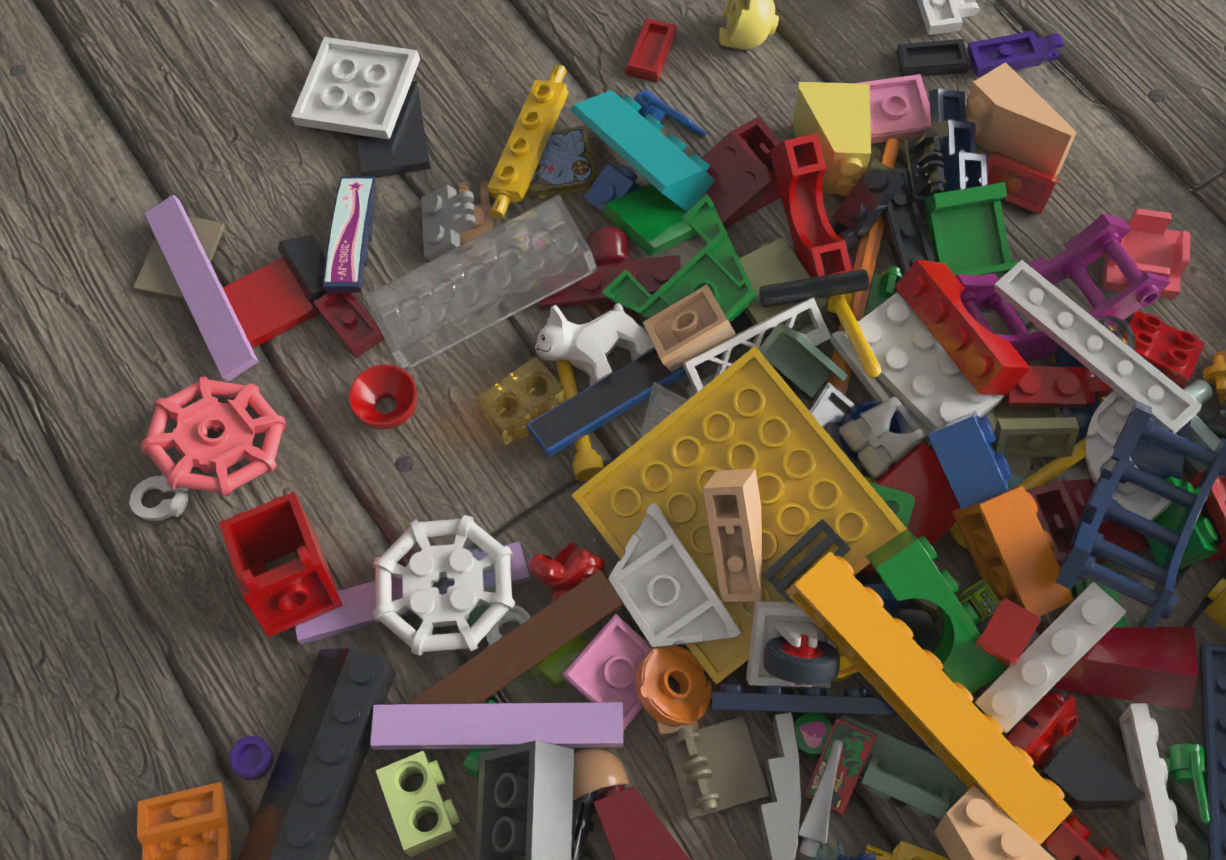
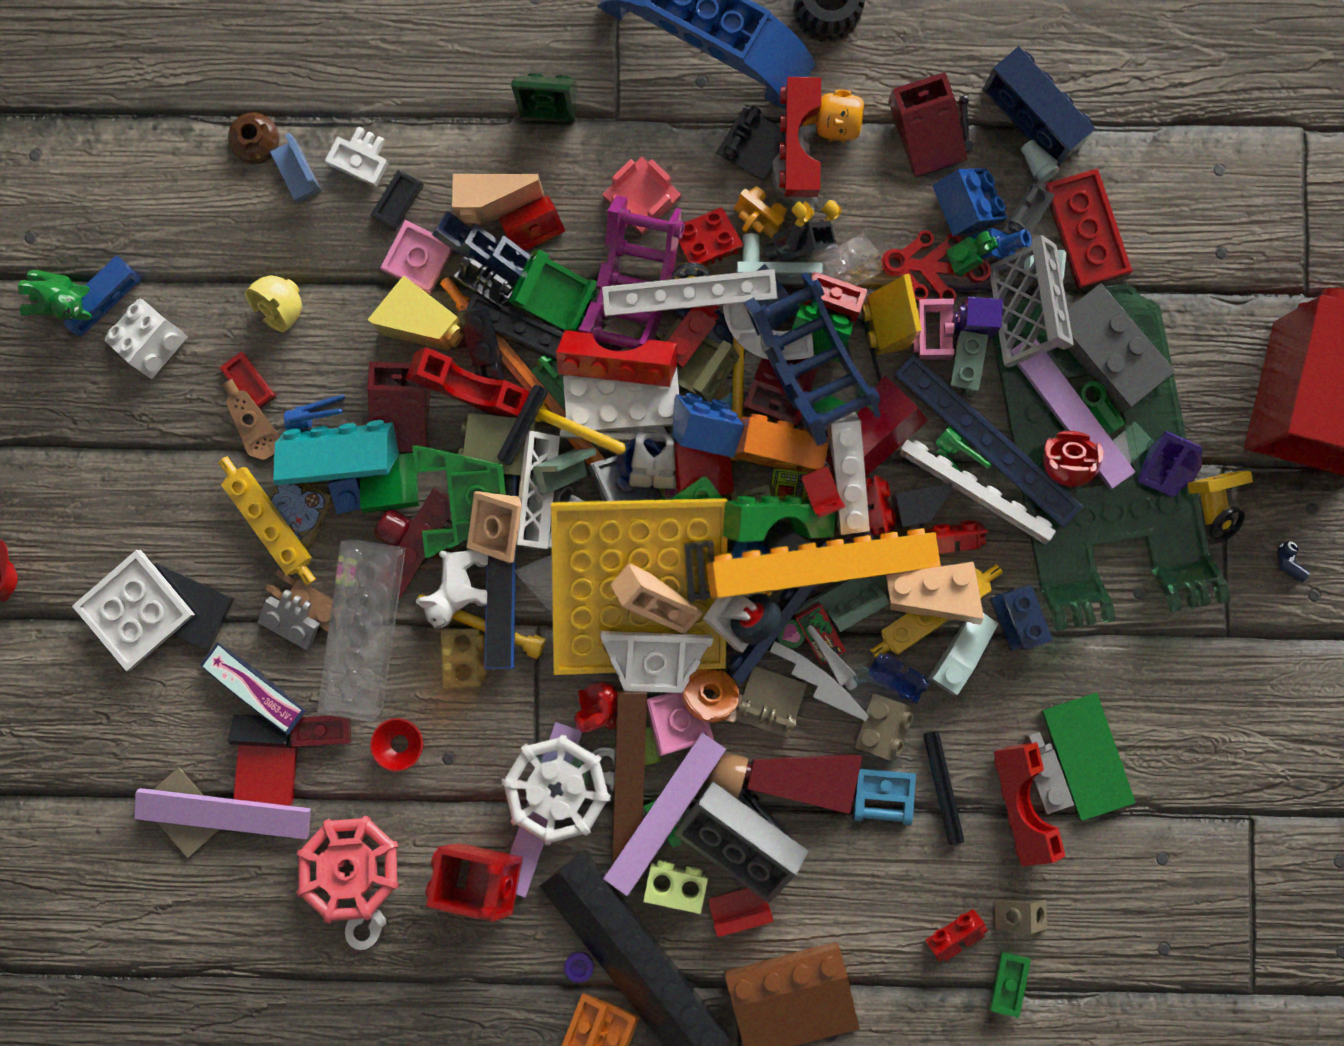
camera: 55 degrees left, 20 degrees up
(619, 81) = (258, 430): none -> medium nougat piece
(1017, 50) = (433, 147): dark purple plate -> none
(1154, 101) = (545, 97): none -> dark green slope

